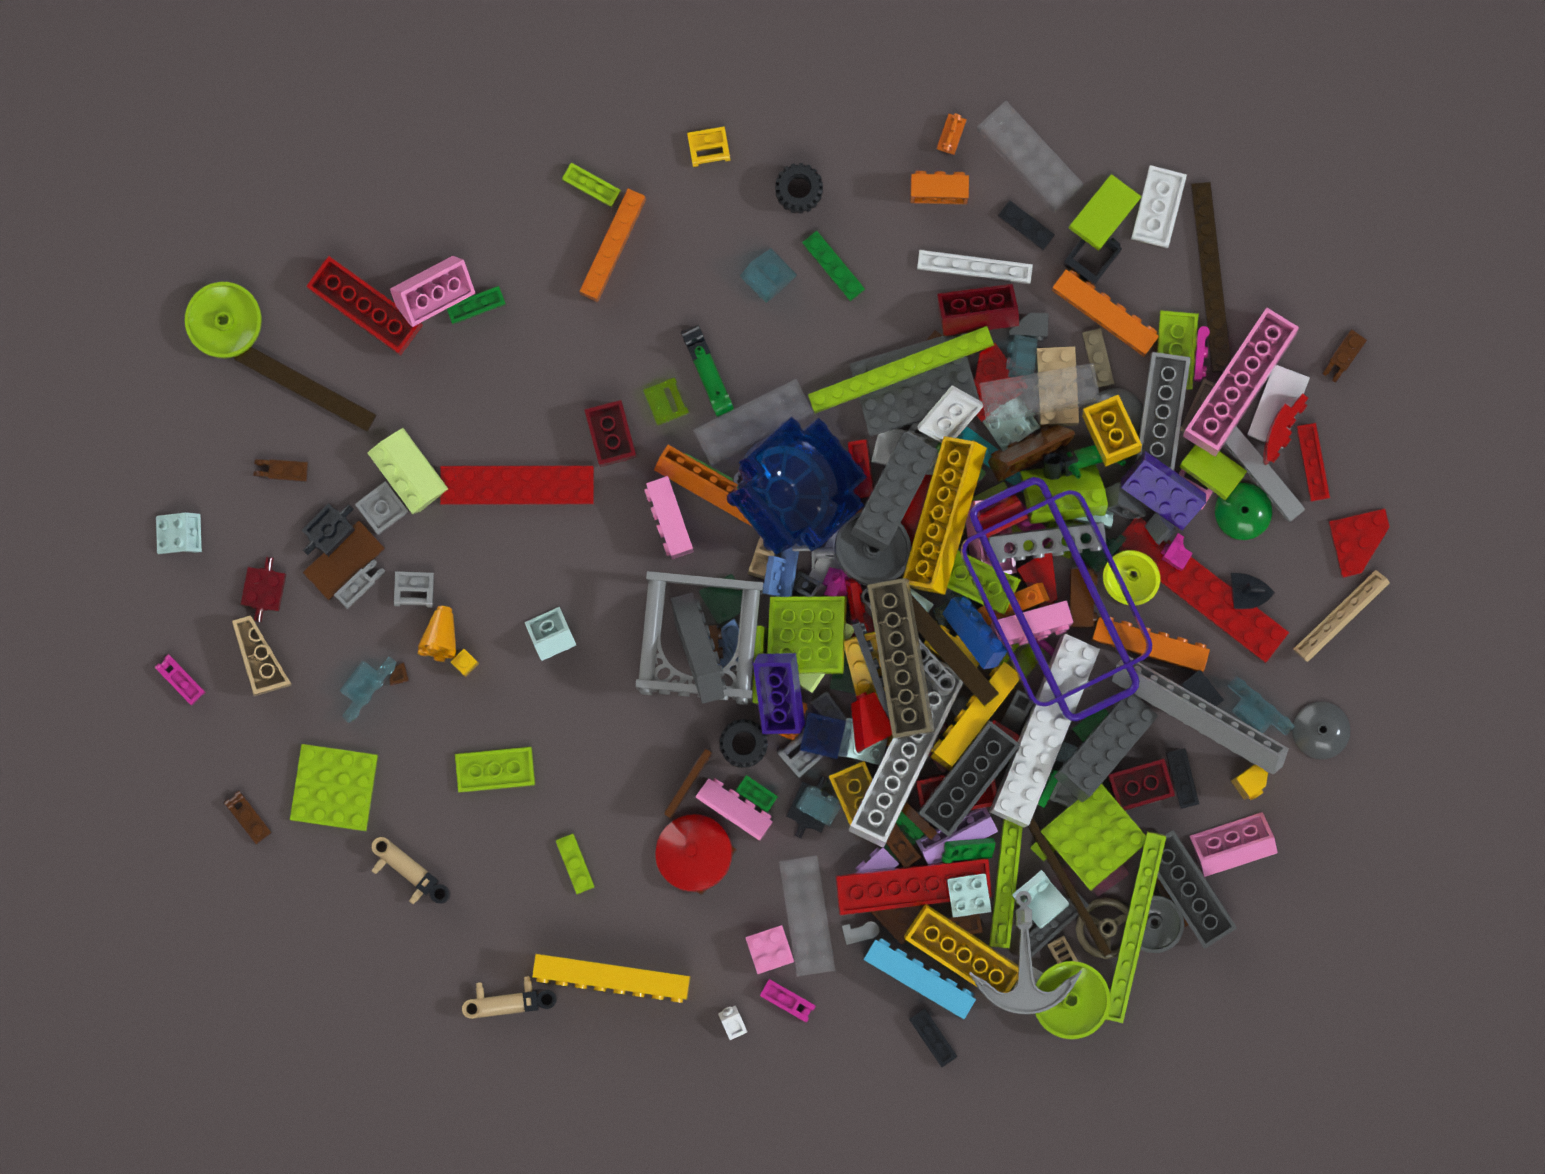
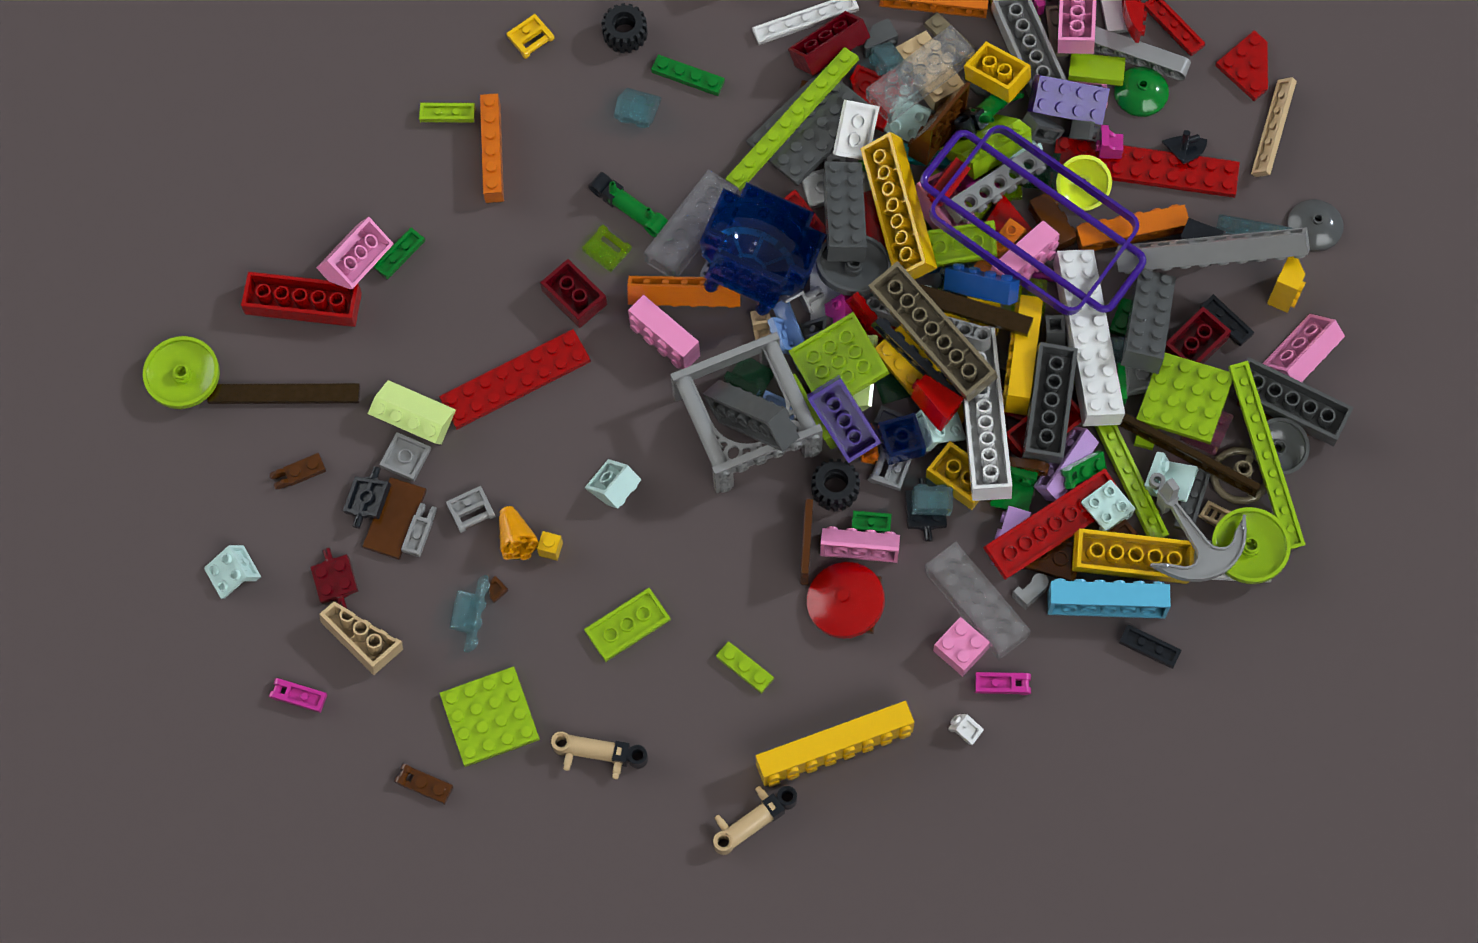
camera: 30 degrees left, 15 degrees down
(902, 847) = (1026, 499): reddish brown plate -> none

